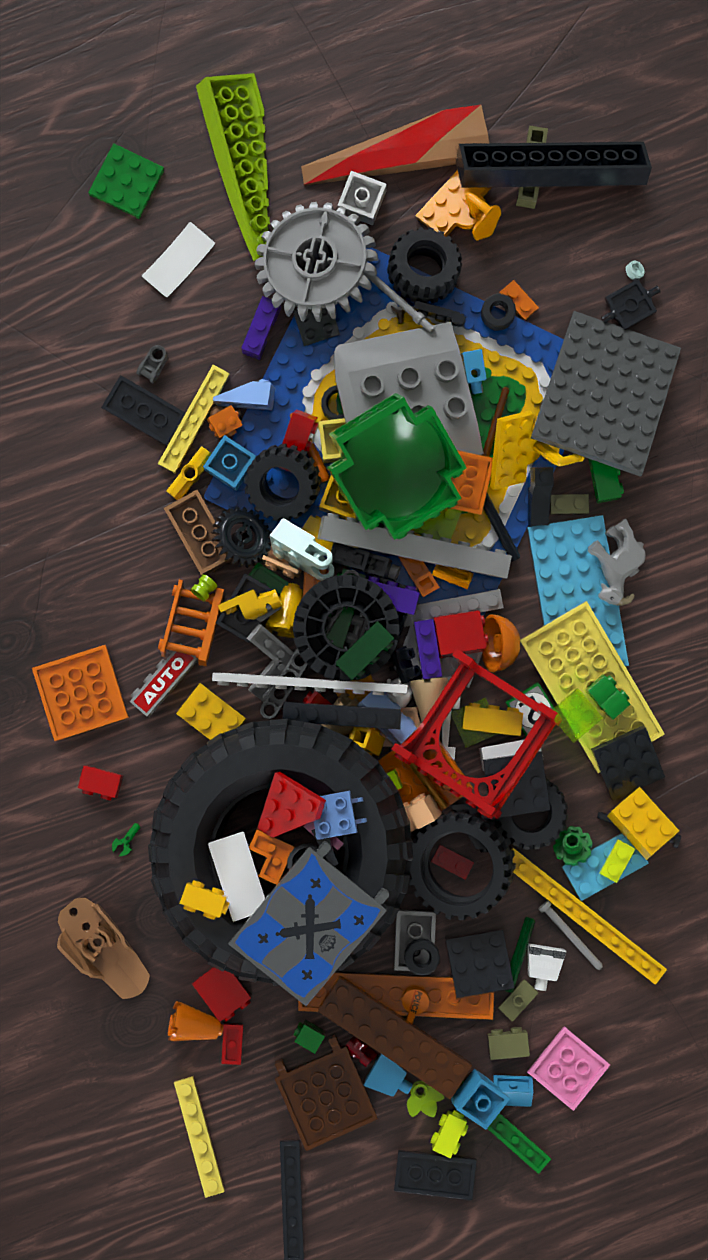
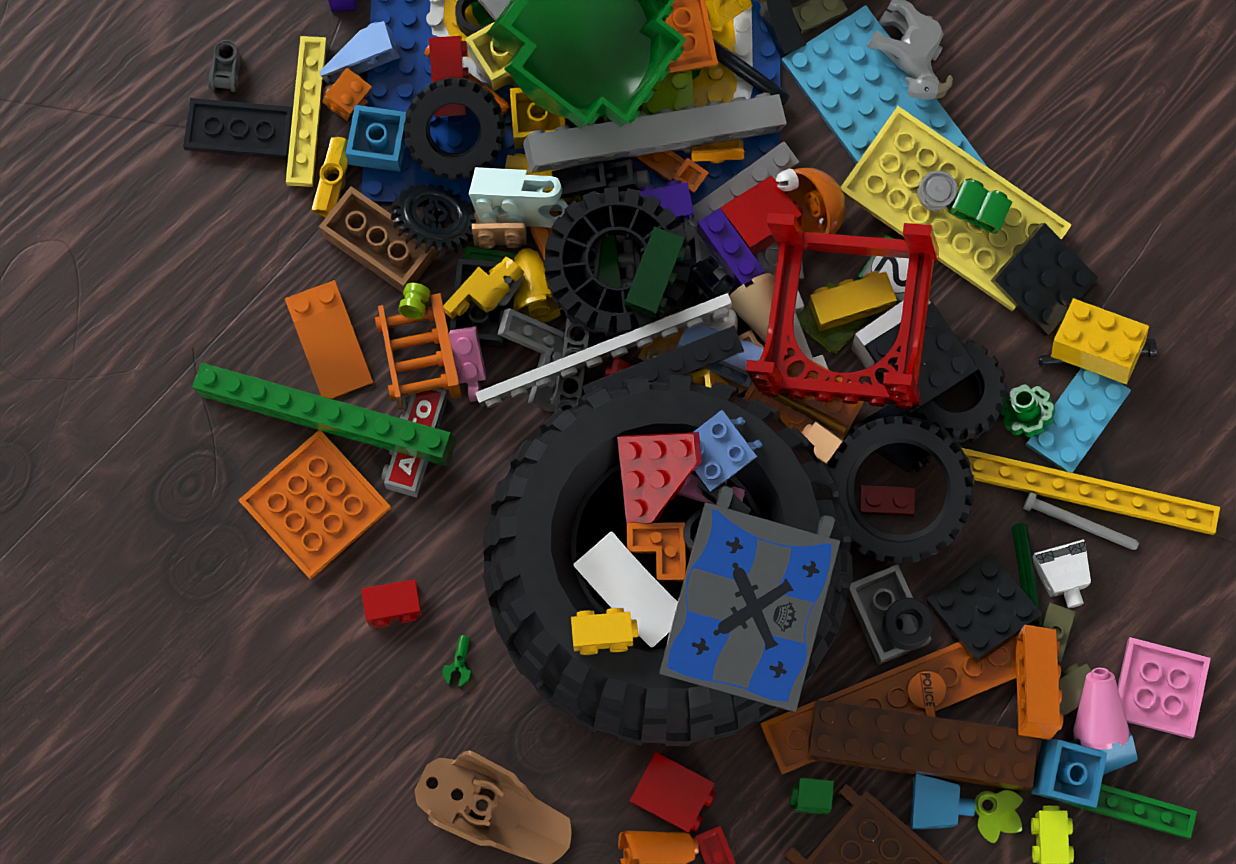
camera: 25 degrees left, 10 degrees down
(111, 638) = (325, 414): none -> green brick
(138, 586) = (329, 340): none -> orange slope
(209, 713) = (486, 451): yellow brick -> none
(221, 644) = (468, 359): none -> bright pink plate
(360, 1050) = (883, 787): dark red plate -> none
(487, 620) = (787, 180): none -> white hinge
(487, 1033) = (1038, 682): none -> orange brick
(518, 1072) = (1100, 712): none -> bright pink cone
(577, 715) = (957, 246): clear neon green plate -> none
(584, 672) = (937, 190): none -> light grey wheel
(617, 861) = (1091, 402): neon yellow plate -> none

